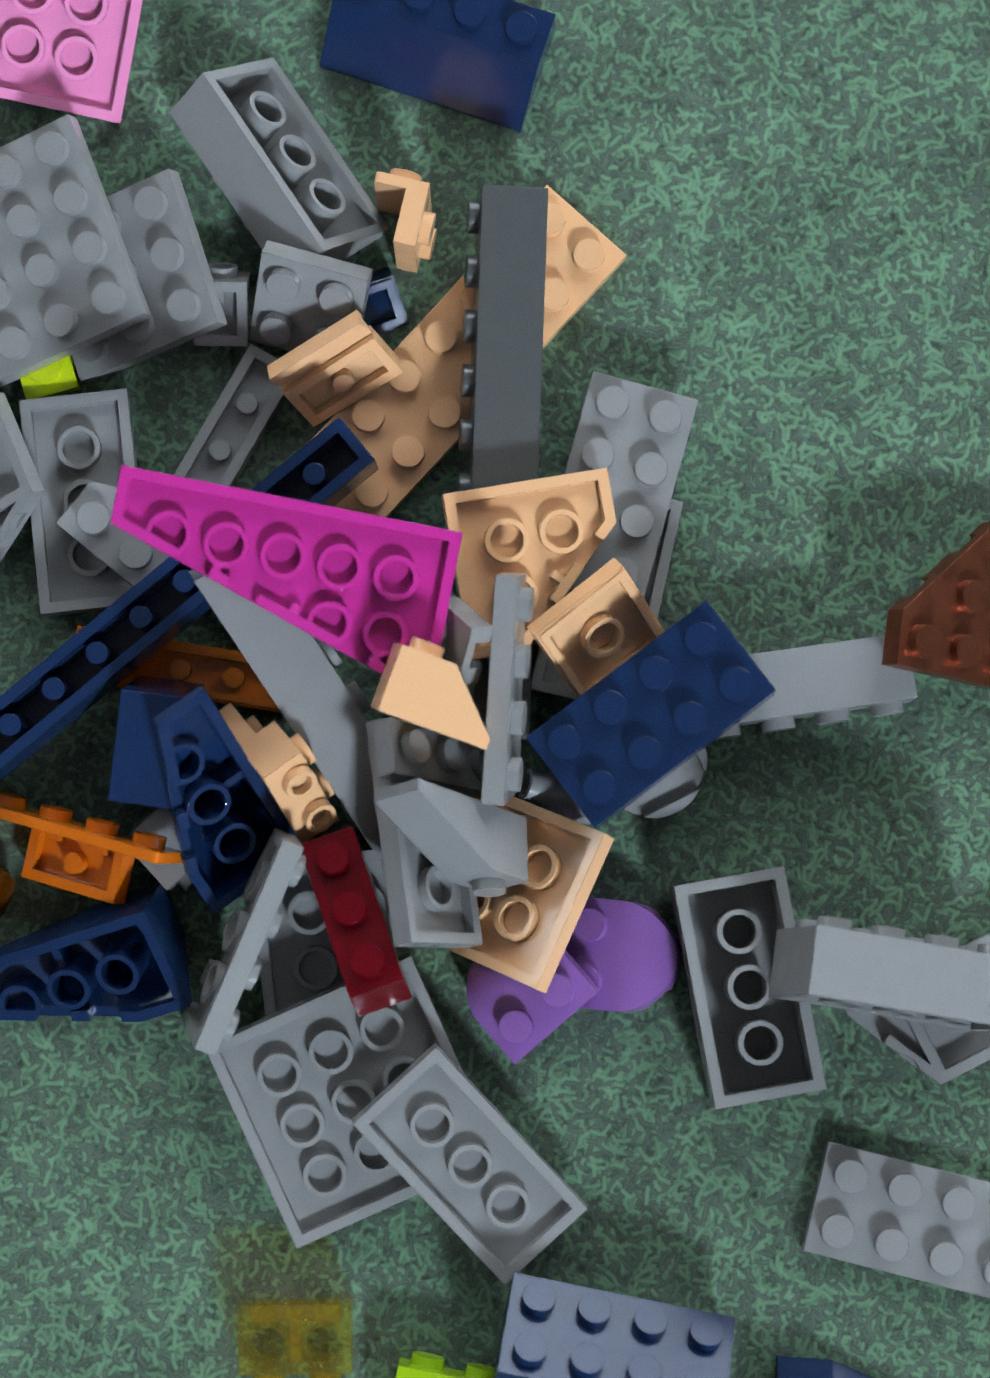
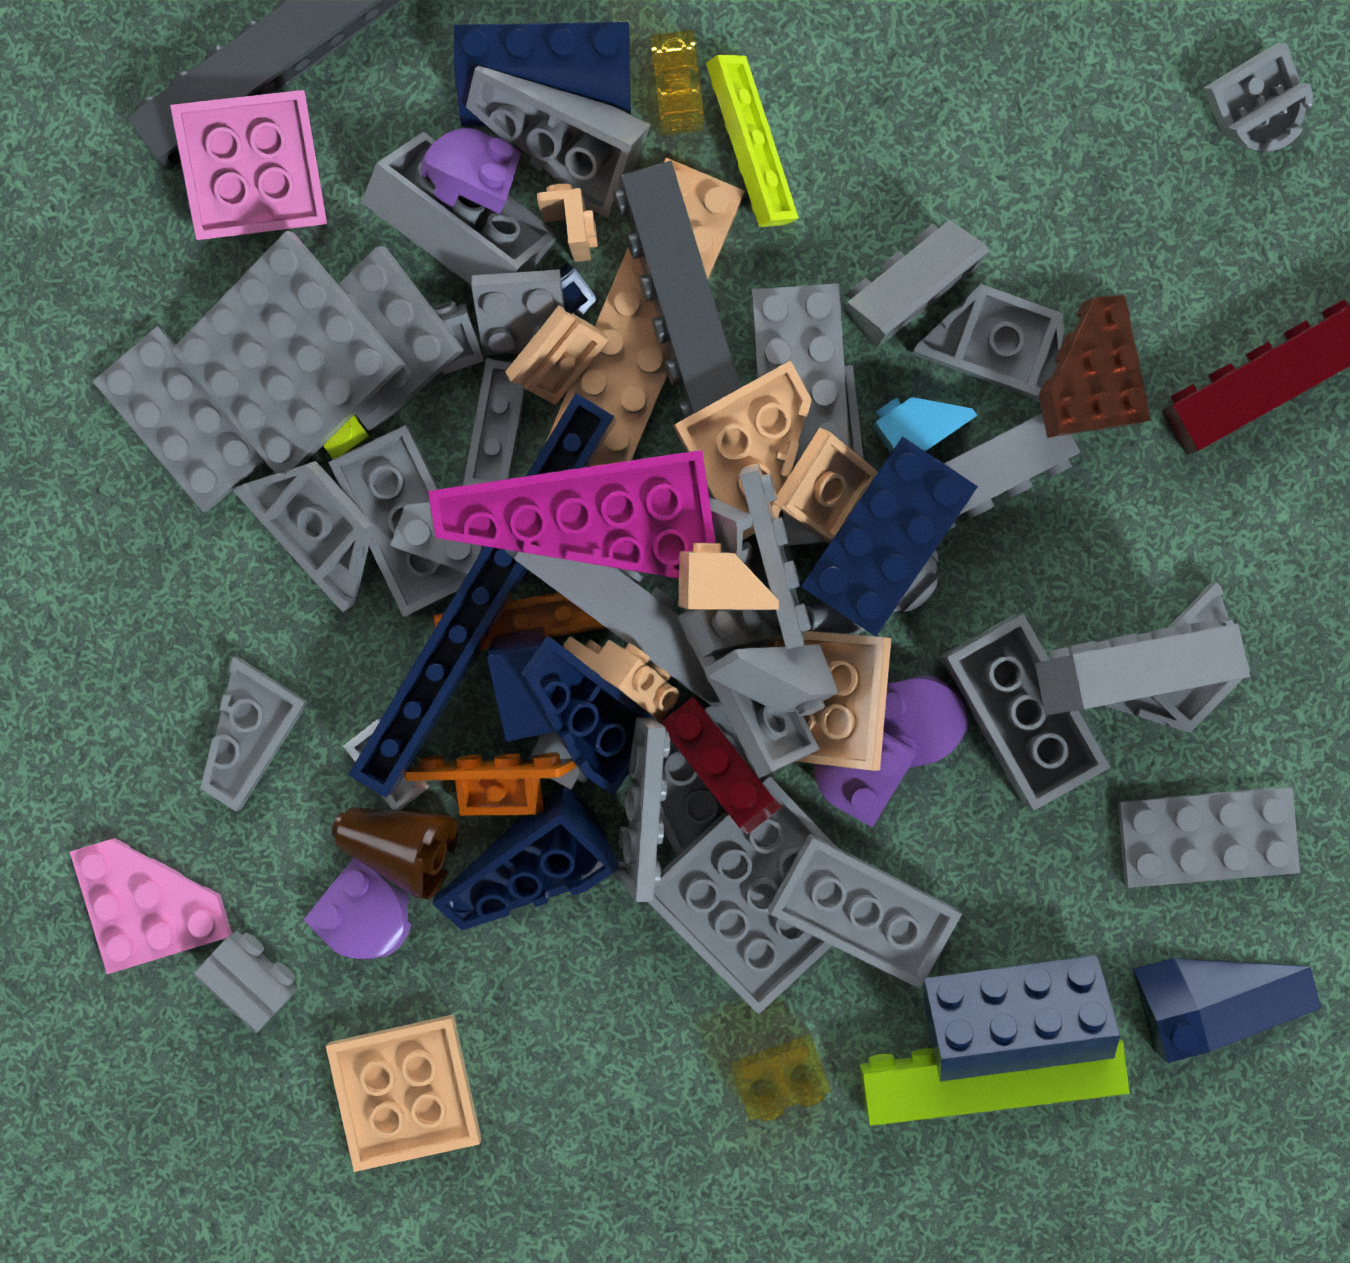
camera: 15 degrees left, 5 degrees up
(313, 116) = (471, 166): none -> medium lavender slope
(433, 114) = (561, 132): none -> light grey wedge
(589, 103) = (677, 82): none -> clear yellow brick
(655, 200) = (752, 140): none -> neon yellow plate
(742, 597) = (919, 422): none -> medium azure slope
(788, 429) = (913, 281): none -> light grey slope
(865, 532) = (998, 341): none -> light grey wing

